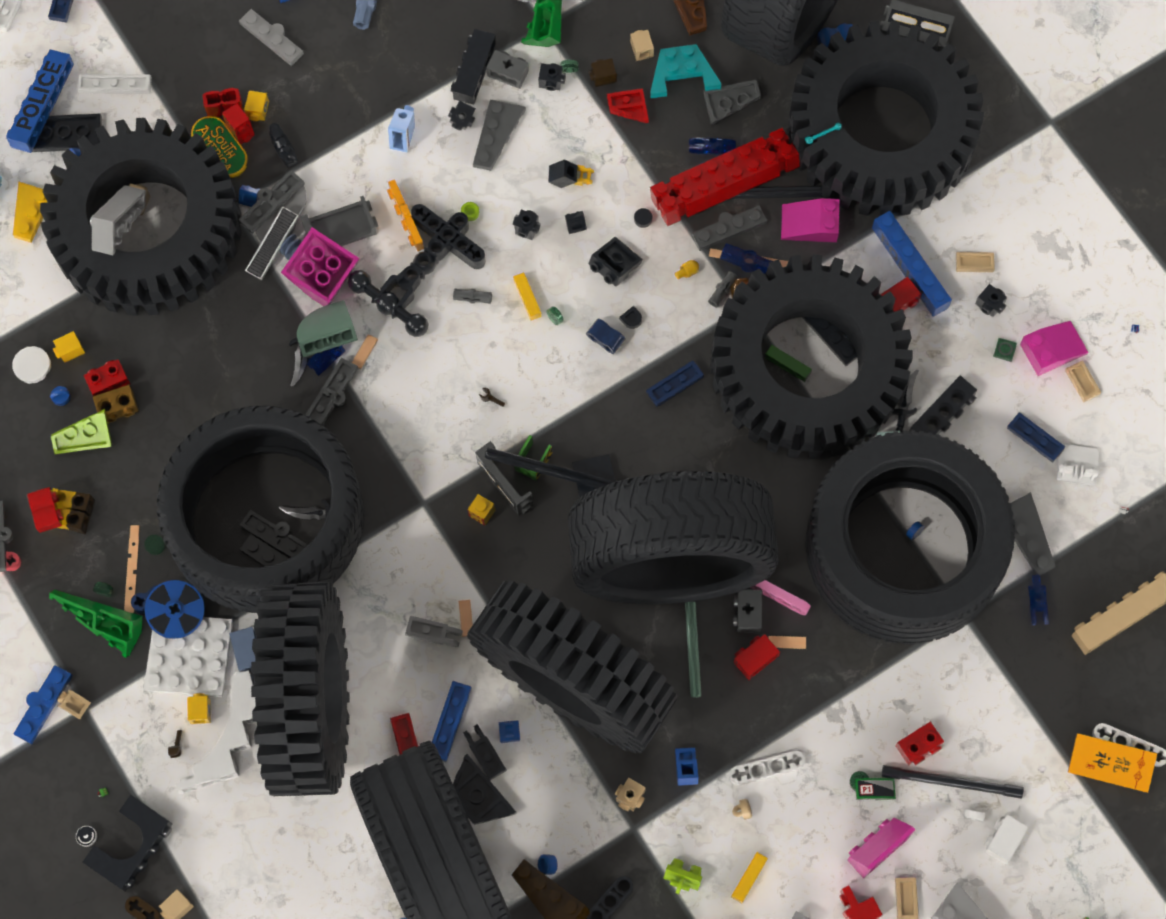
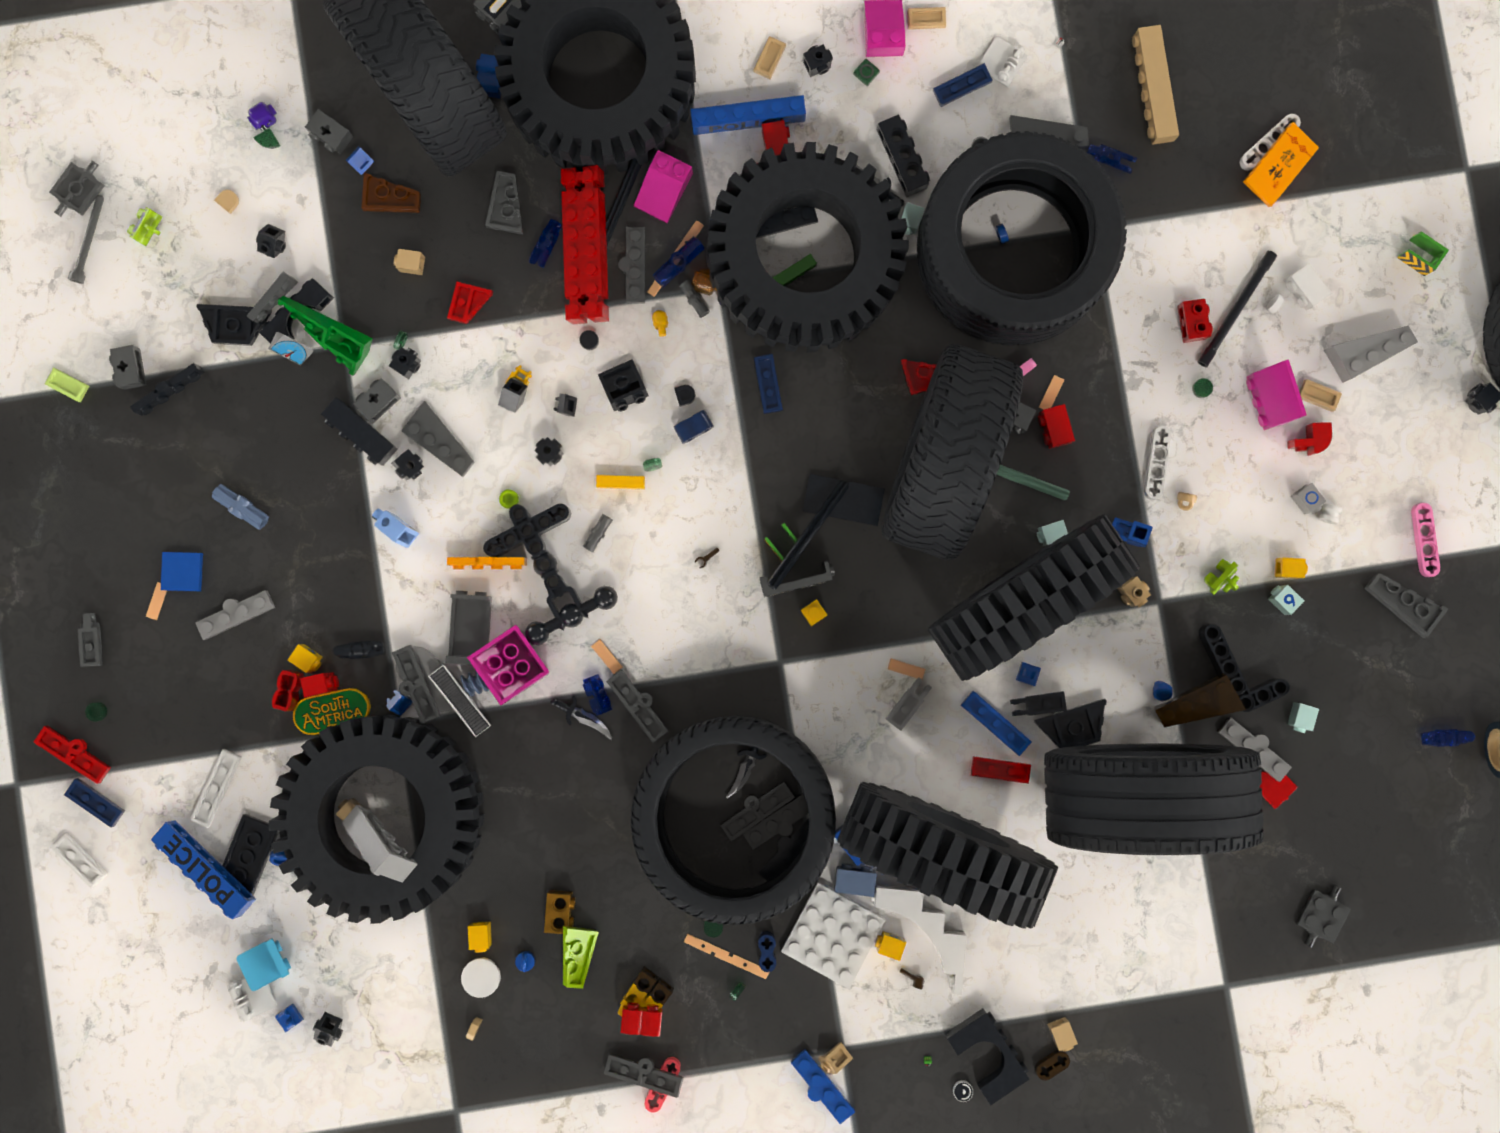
camera: 70 degrees left, 15 degrees up
(27, 211) = (316, 922): yellow wing -> none
(106, 378) = (529, 911): red brick -> none
(113, 624) = (776, 992): green wedge -> none
(178, 624) = (789, 949): blue piece -> none
(326, 329) = (574, 685): sand green brick -> none
(603, 72) = (422, 311): dark brown brick -> none
(680, 64) = (447, 232): teal wing -> none
(749, 877) = (1246, 521): yellow piece -> none
(809, 139) = (595, 147): teal hinge -> none
(875, 789) = (1216, 378): slope -> none

